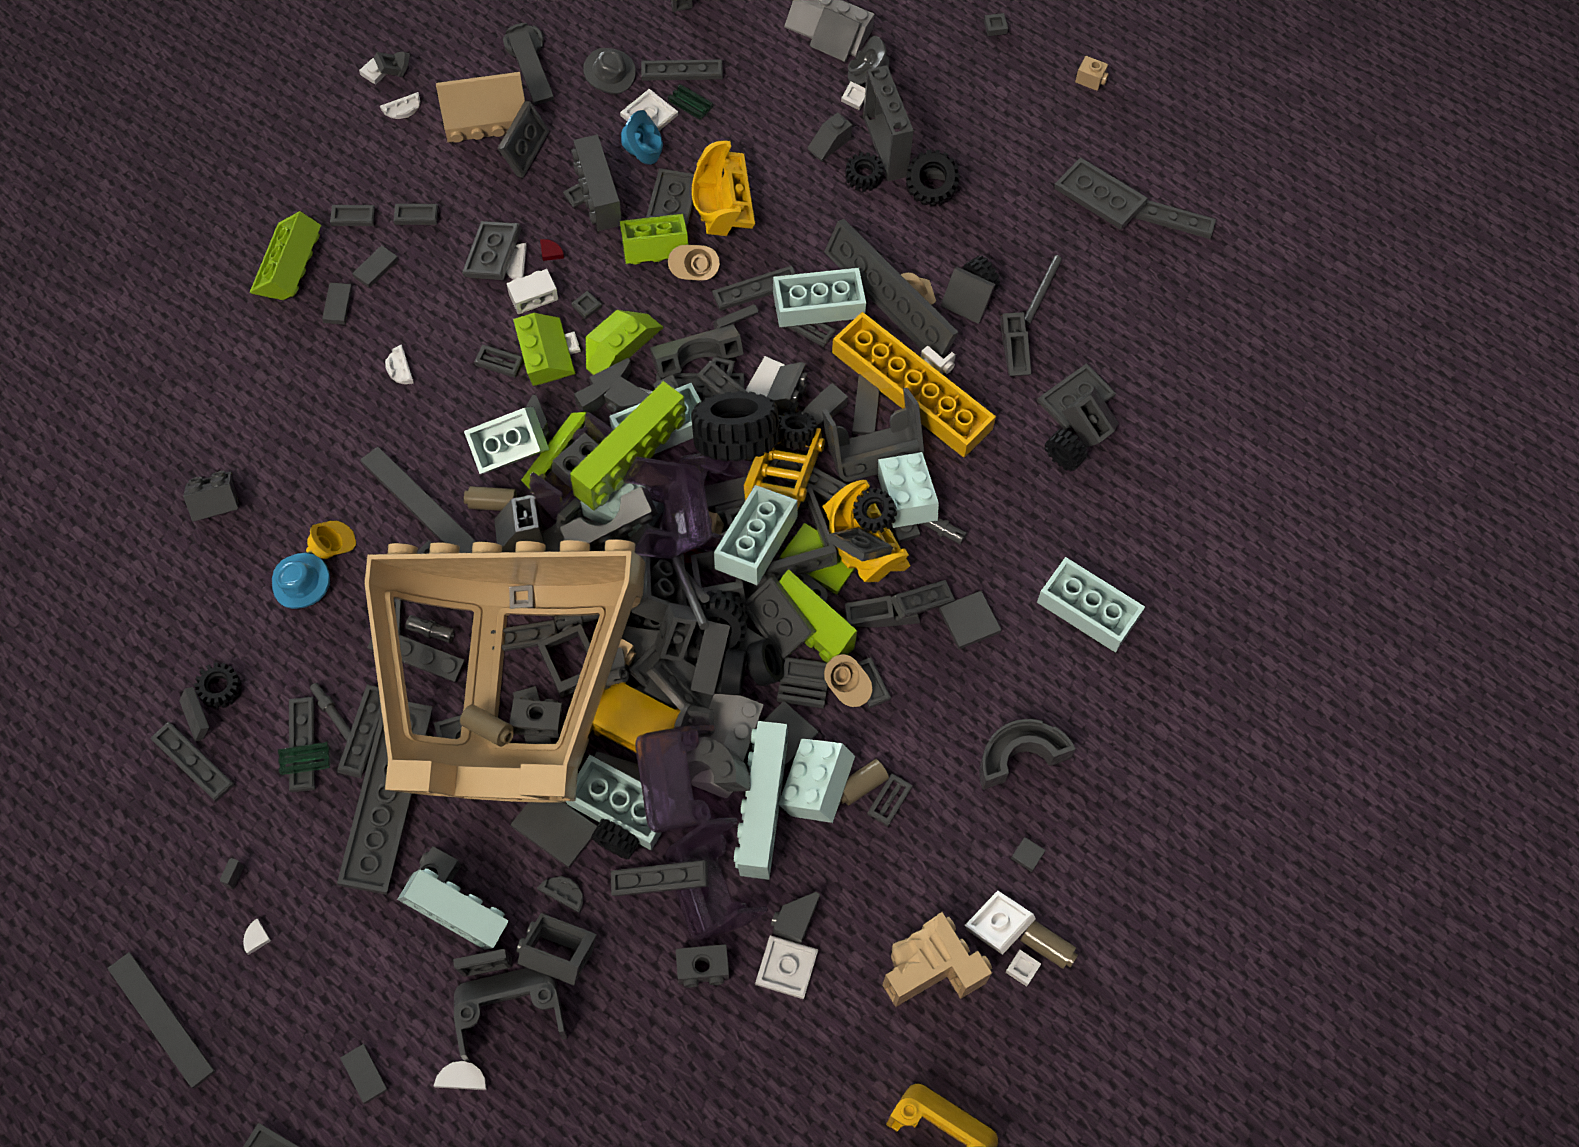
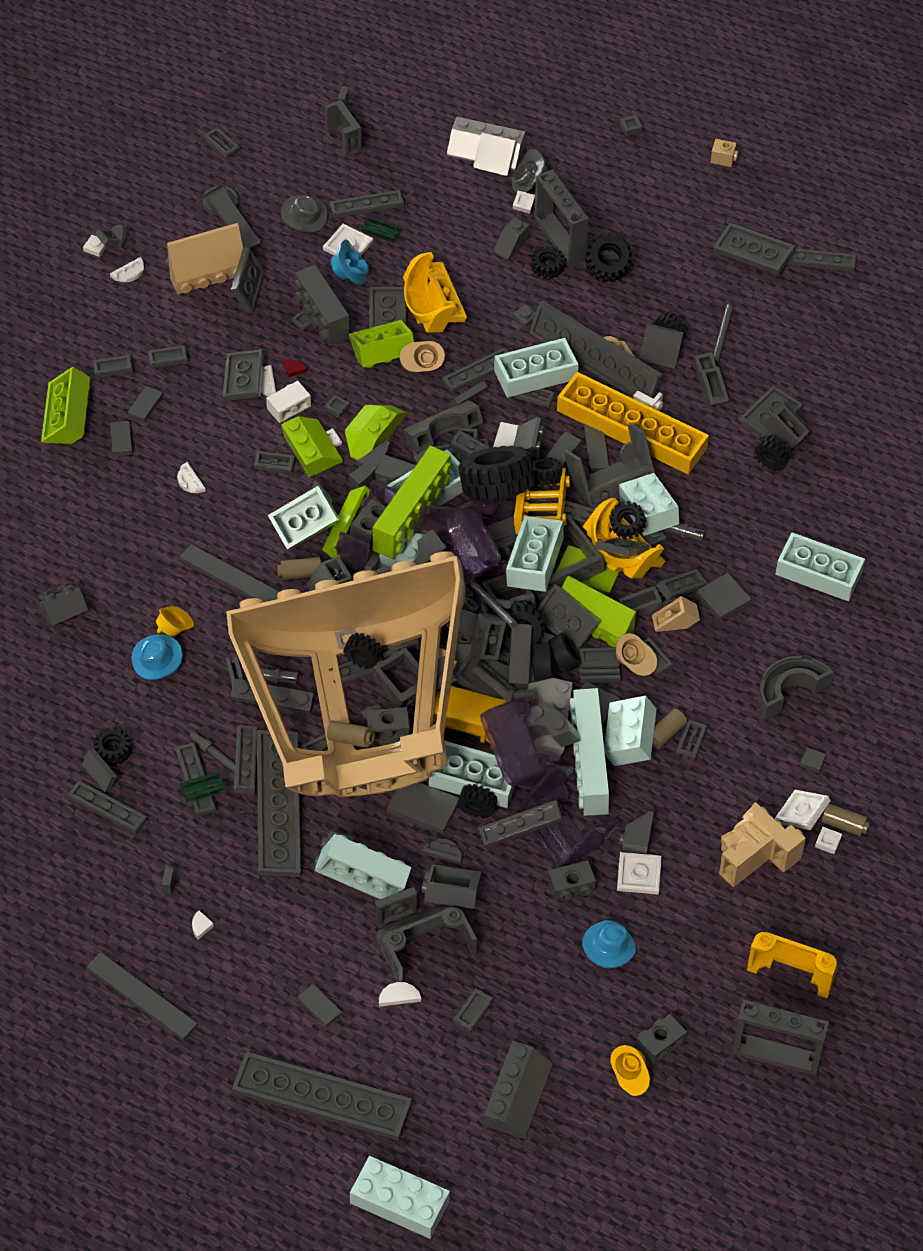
camera: 10 degrees left, 10 degrees down
(530, 619) = (362, 650): none -> black tyre
(543, 1116) = (473, 1010): none -> dark grey tile
(726, 1060) = (608, 944): none -> dark azure hat
(822, 231) = (524, 316): none -> dark grey plate
(907, 636) = (676, 615): none -> tan slope

